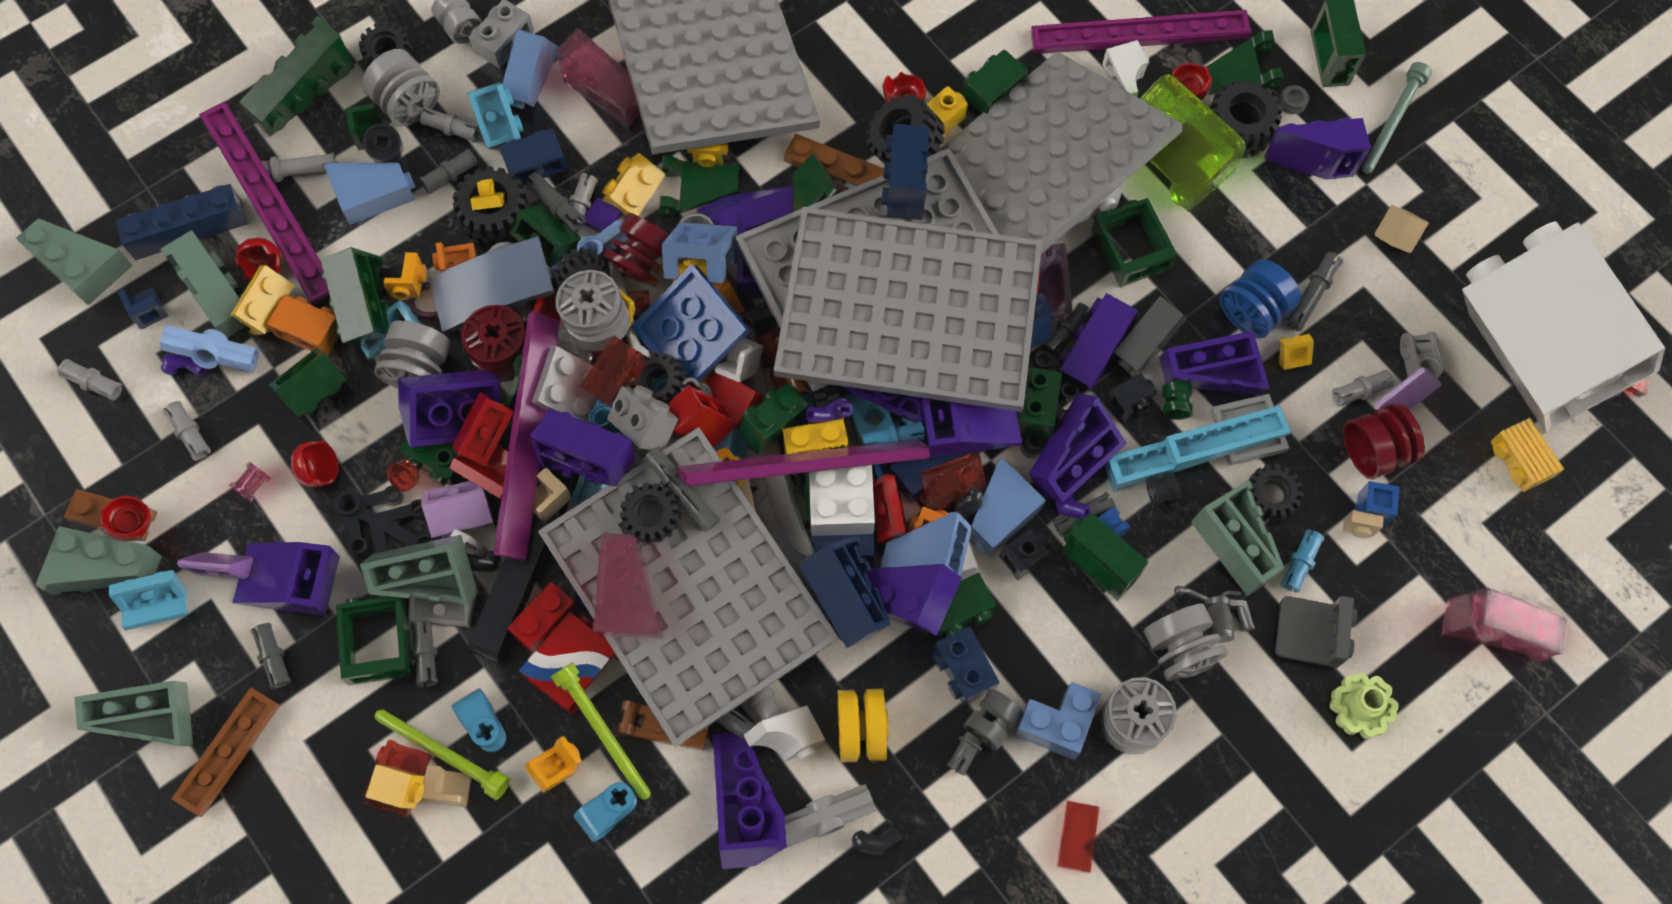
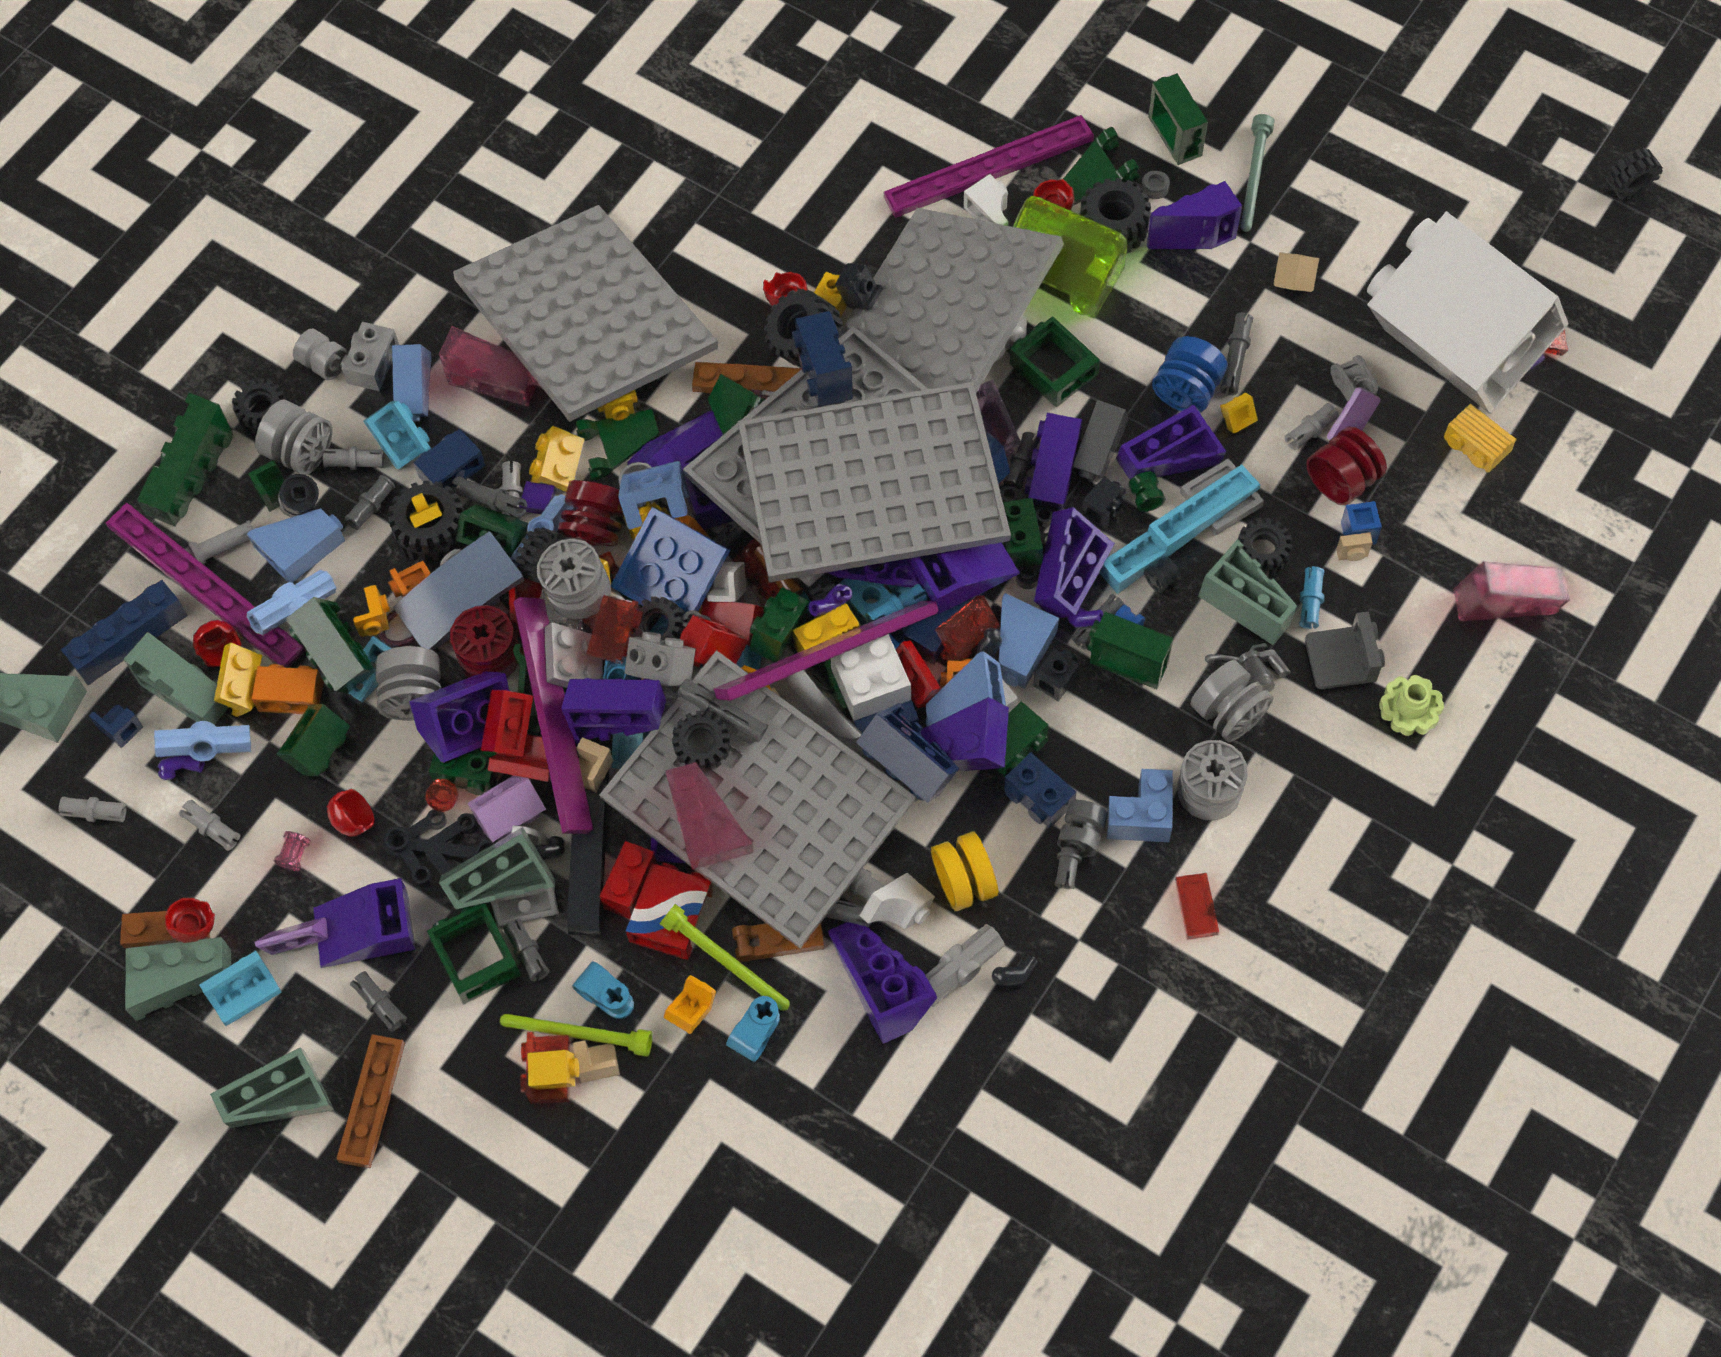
camera: 15 degrees left, 5 degrees down
(337, 238) = (289, 599): none -> light blue piece
(971, 110) = (858, 287): none -> black brick
(993, 81) = (870, 247): dark green brick -> none

